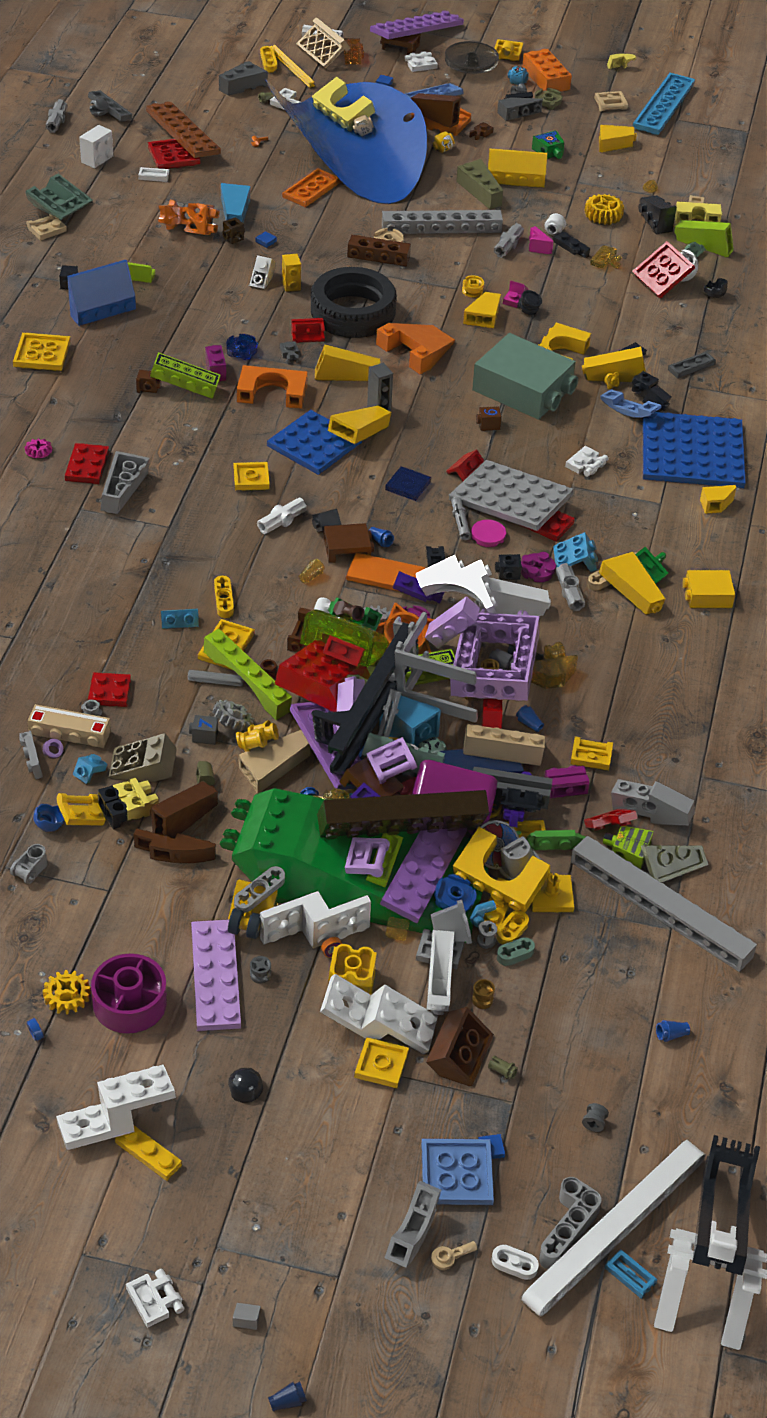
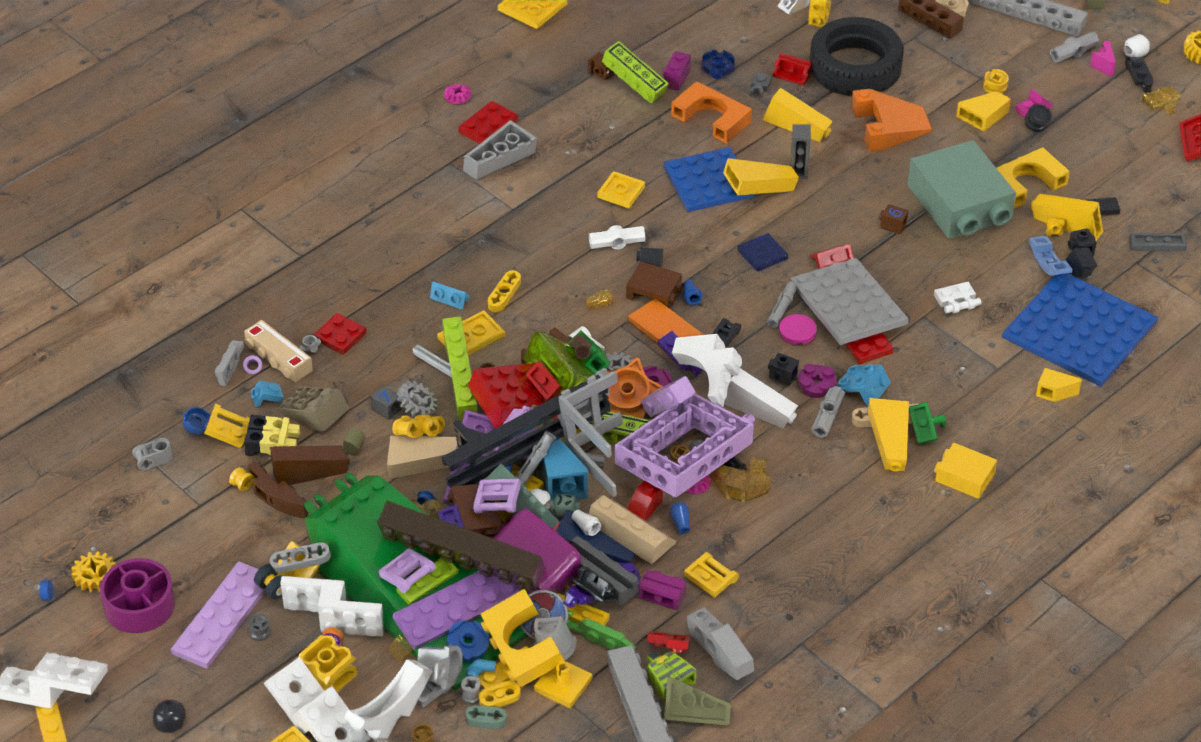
camera: 35 degrees right, 0 degrees up
(133, 850) = (241, 479): none -> yellow wheel
(467, 753) = (589, 524): none -> white cone

